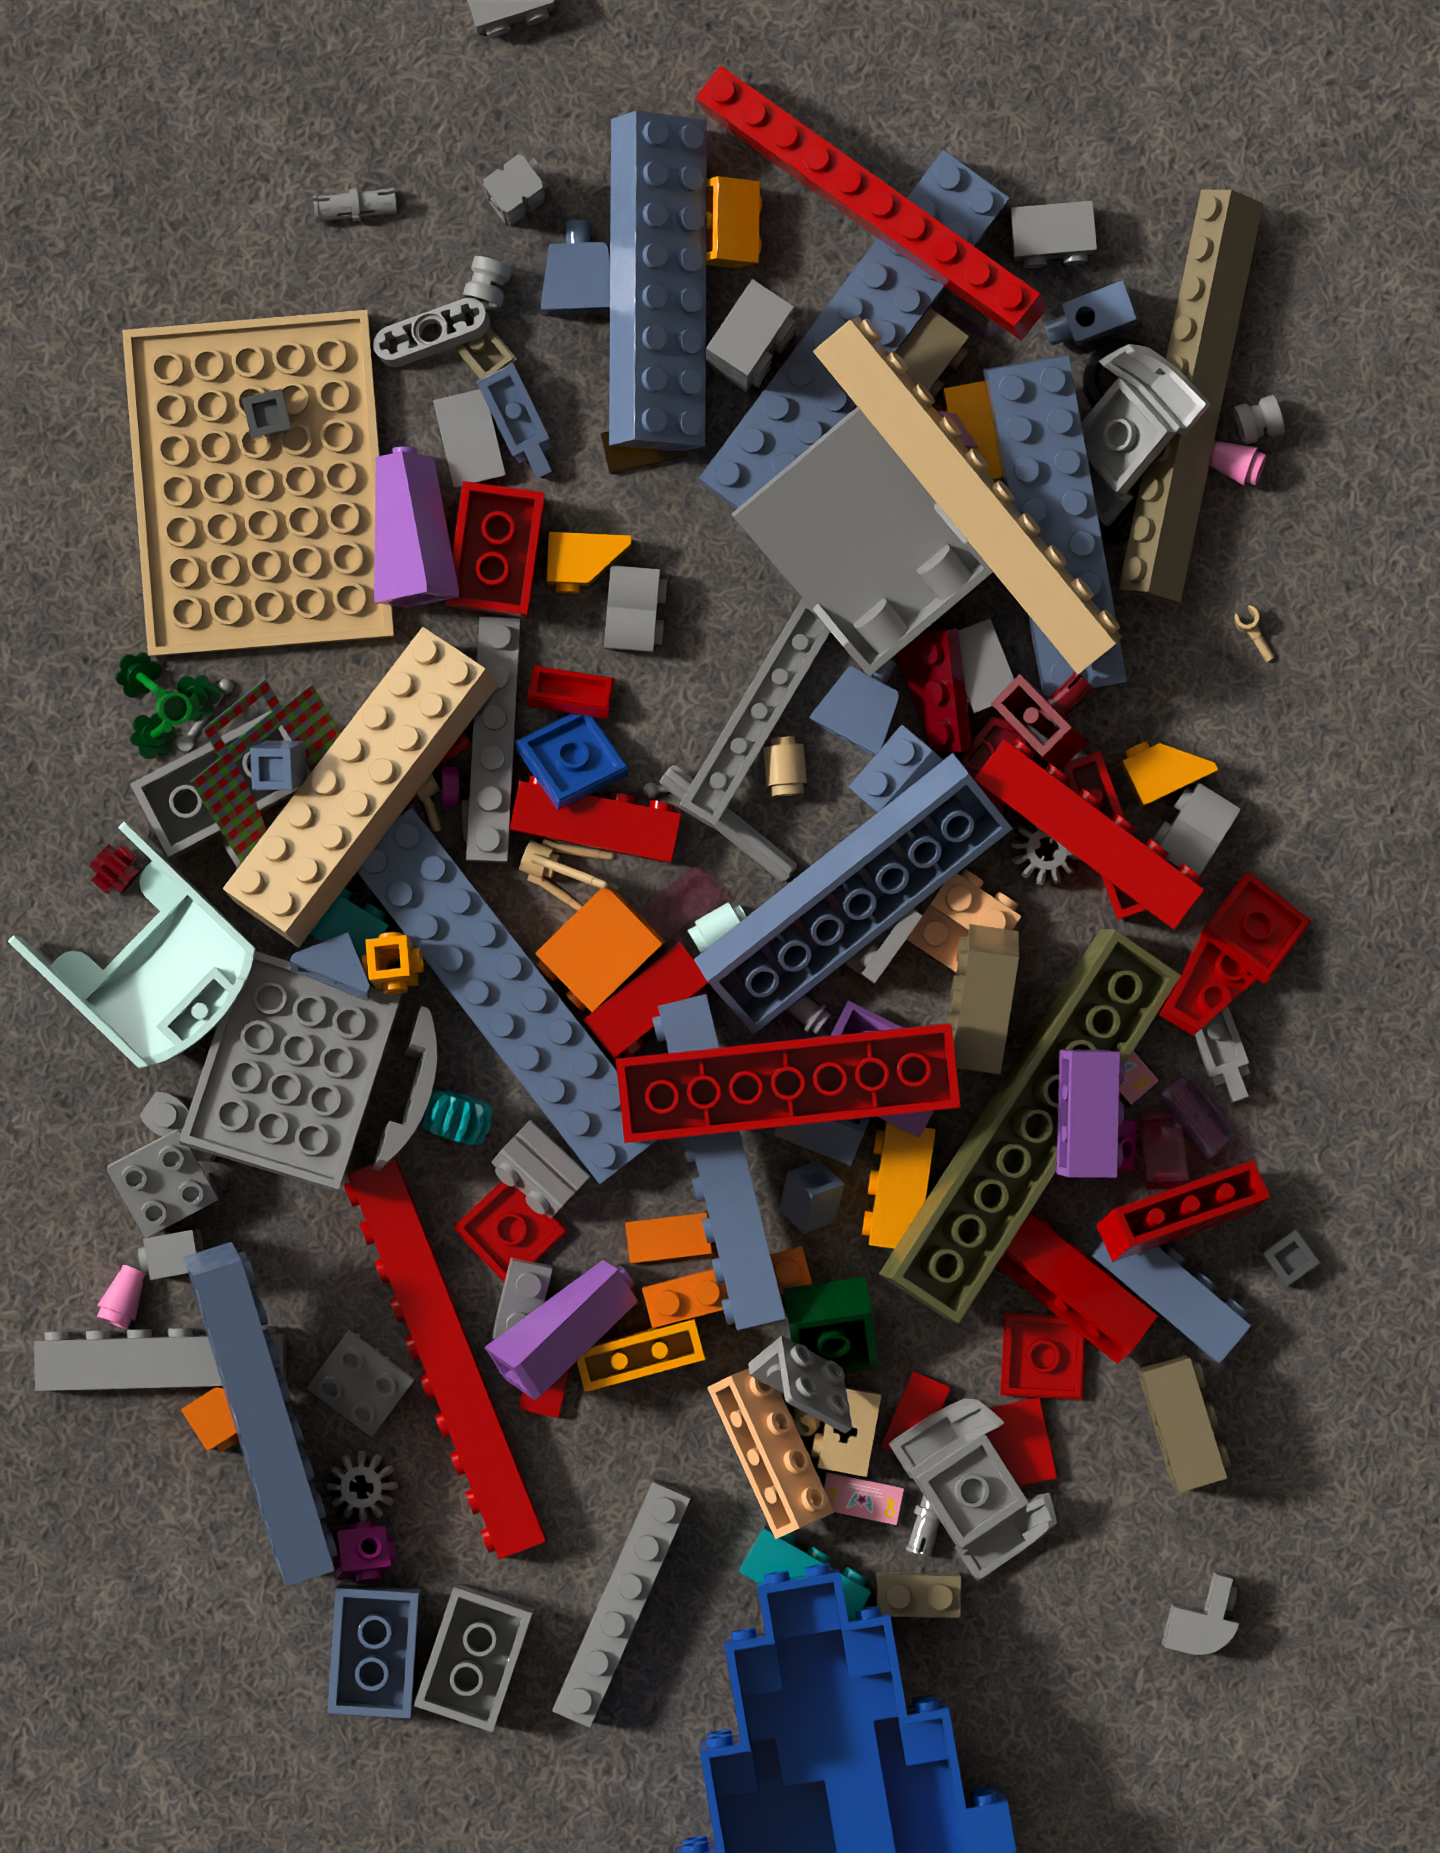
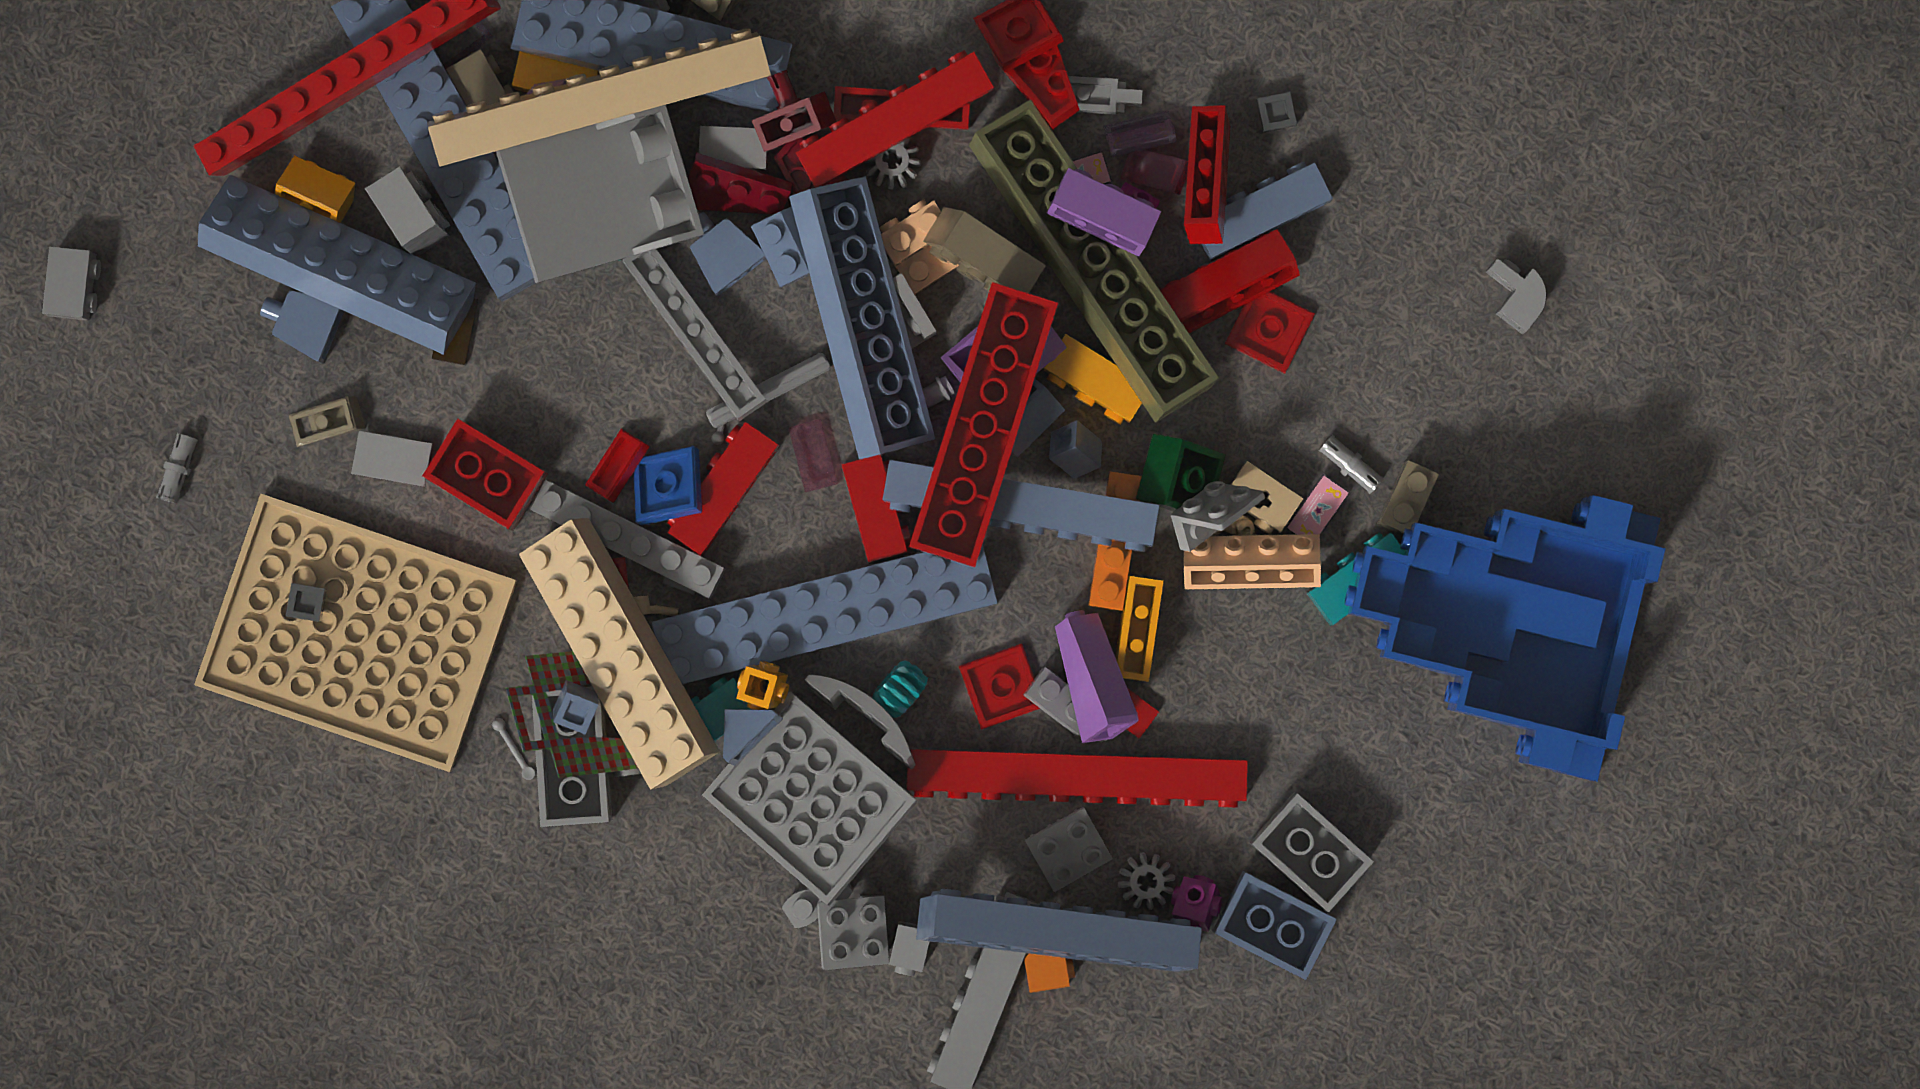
camera: 65 degrees left, 0 degrees up
(114, 869) = (600, 867): dark red gear -> none
(122, 1298) = (926, 1001): bright pink cone -> none
(168, 980) = (701, 861): light aqua windscreen -> none
(172, 707) = (498, 759): dark green plant -> none
(408, 354) = (288, 461): light grey beam -> none
(411, 533) = (444, 532): medium lavender slope -> none
(449, 786) = (648, 587): magenta tile -> none
(488, 280) = (279, 393): light grey wheel -> none
(516, 188) = (218, 340): light grey brick -> none
(516, 418) = (392, 416): sand blue hinge -> none
(539, 1170) = (967, 644): light grey brick -> none
(541, 861) = (735, 542): tan plant -> none
(582, 558) = (520, 412): light orange slope -> none
(599, 949) = (820, 528): orange brick -> none
(621, 1603) = (1318, 724): light grey brick -> none
(633, 608) = (575, 391): light grey brick -> none
(667, 1238) = (1059, 571): orange tile -> none
(715, 925) = (840, 433): light aqua brick -> none
(785, 767) = (744, 329): tan brick -> none
(919, 1400) = (1273, 444): red tile -> none
(972, 1486) = (1344, 422): light grey piece -> none
(1023, 1441) = (1325, 384): red tile -> none
(1162, 770) = (870, 48): light orange slope -> none
(1184, 1423) = (1365, 244): dark tan brick -> none
(1197, 828) = (923, 39): light grey brick -> none

